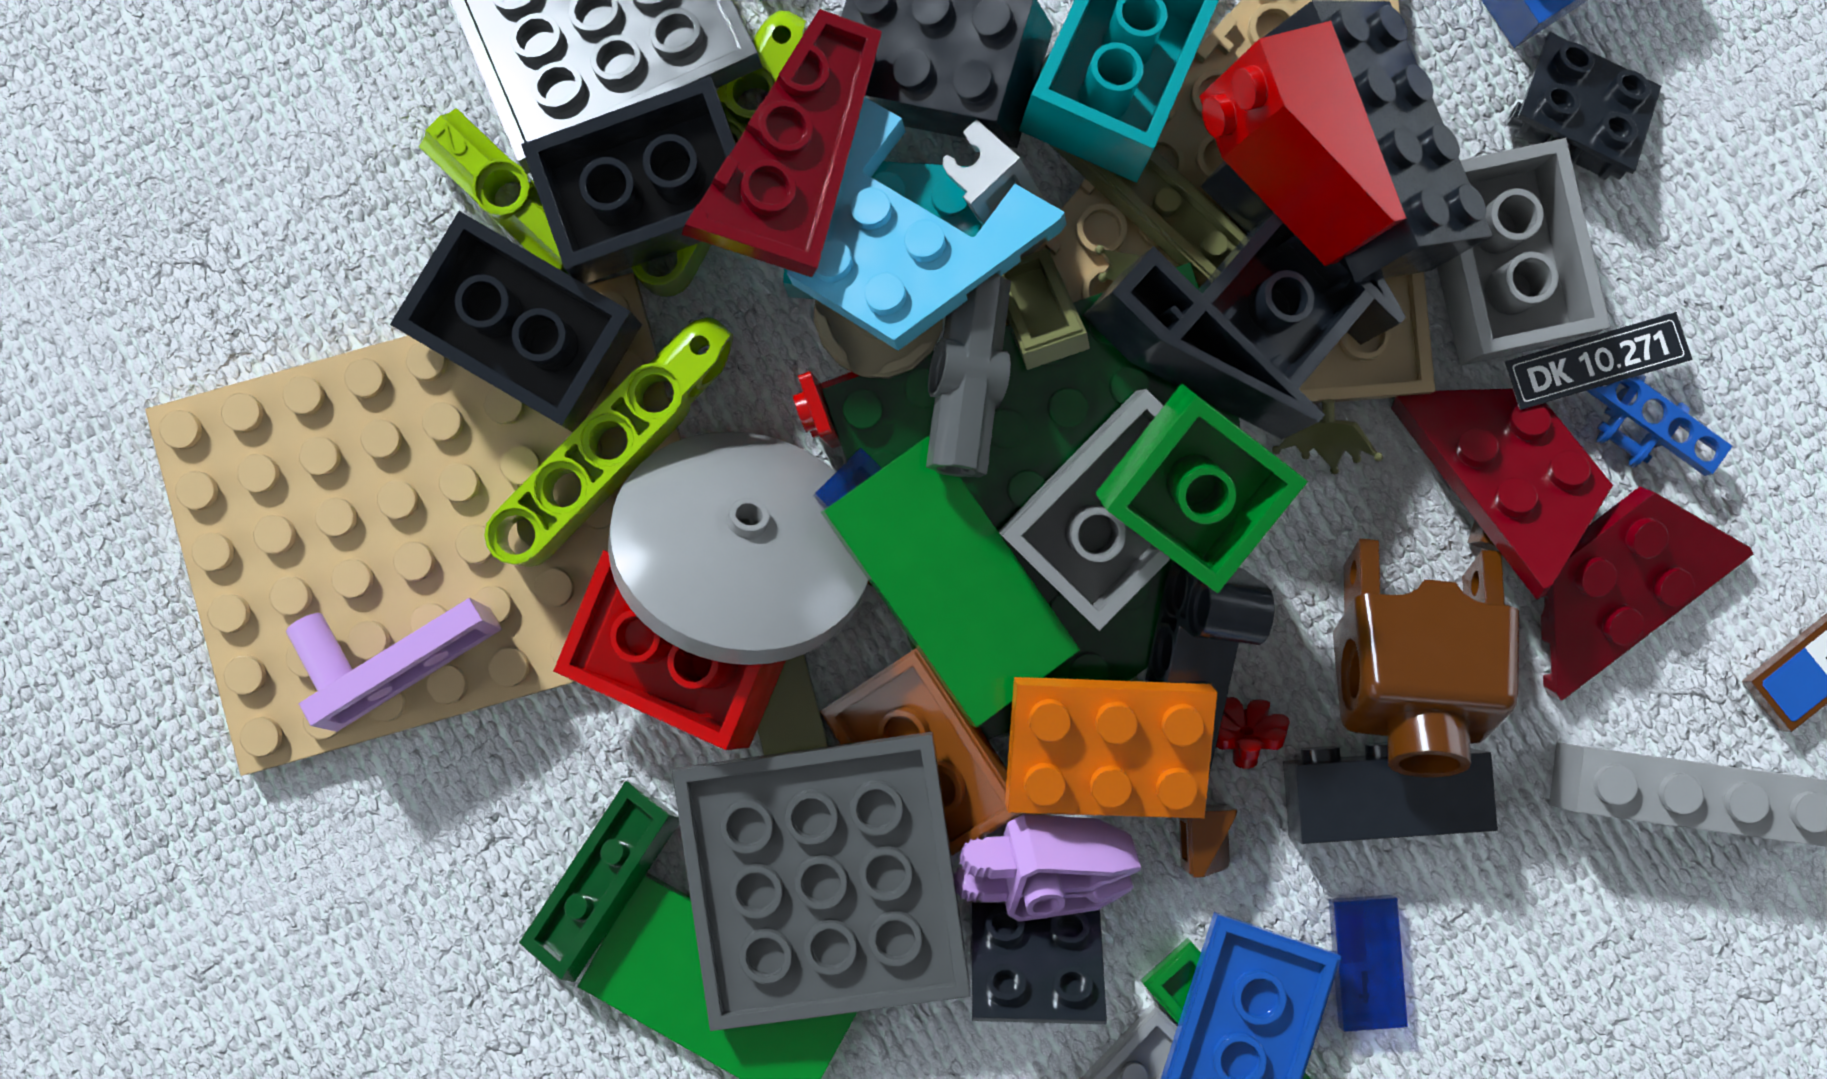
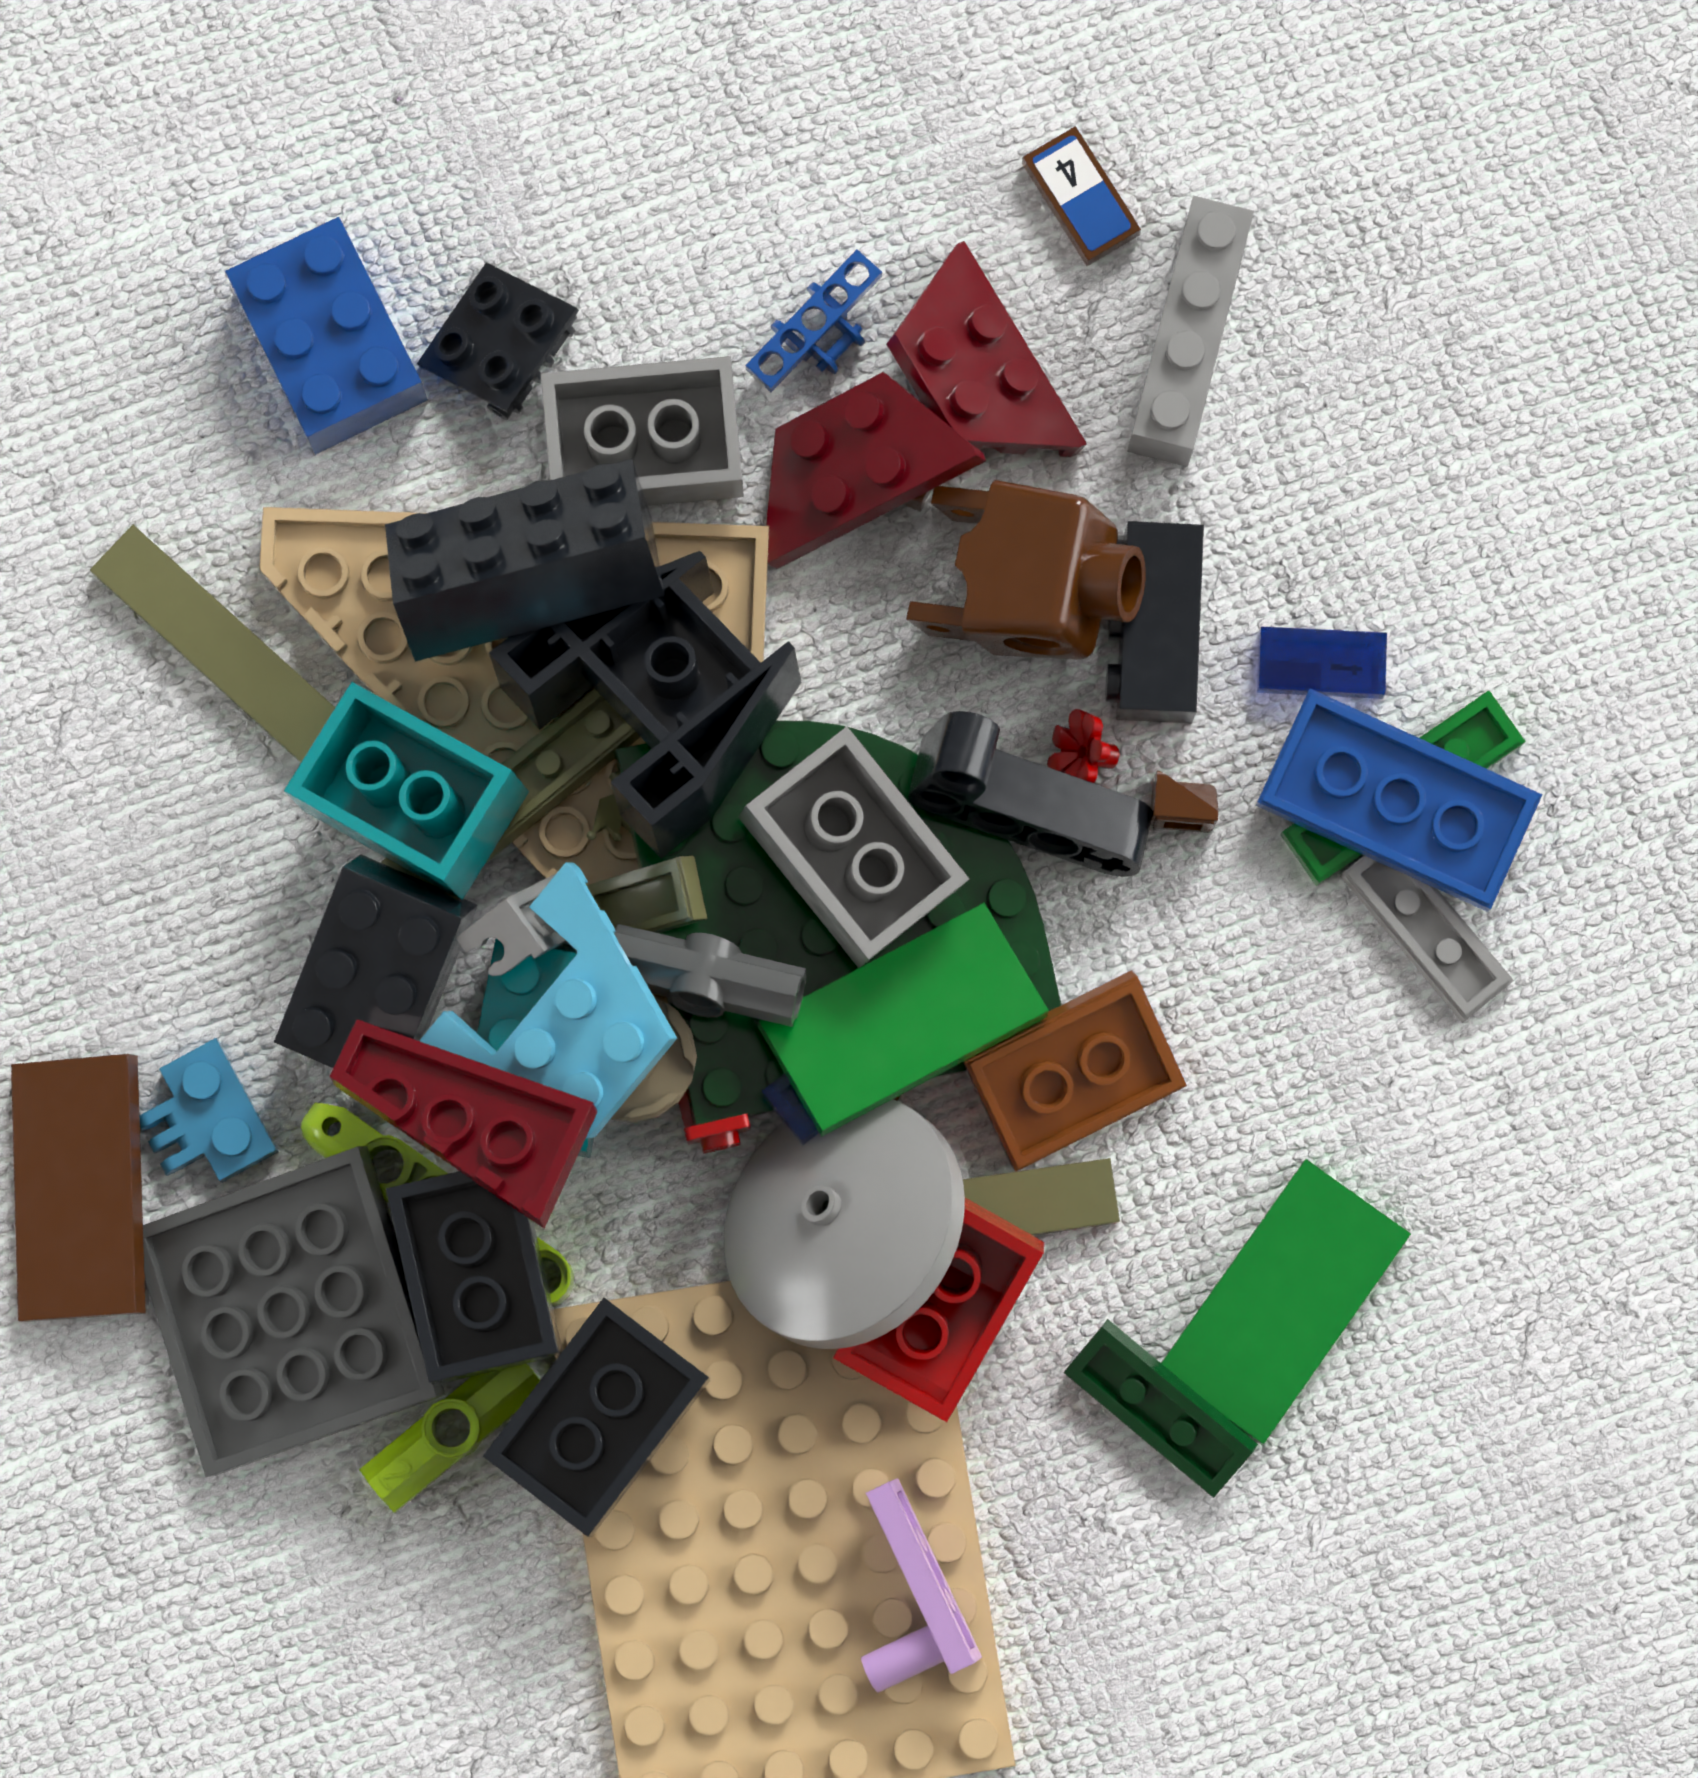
camera: 85 degrees left, 5 degrees down
(580, 455) = (654, 1268): lime piece -> none
(821, 881) = (1182, 1182): dark grey plate -> none
(1037, 967) = (1284, 982): black hinge -> none
(1049, 866) = (1192, 959): lavender hinge -> none
(1110, 747) = (1082, 884): orange plate -> none
(1199, 488) = (848, 767): green brick -> none
(1304, 141) = (531, 630): red slope -> none
(1331, 439) = (804, 630): olive piece -> none
(1598, 360) = (757, 366): black sticker -> none

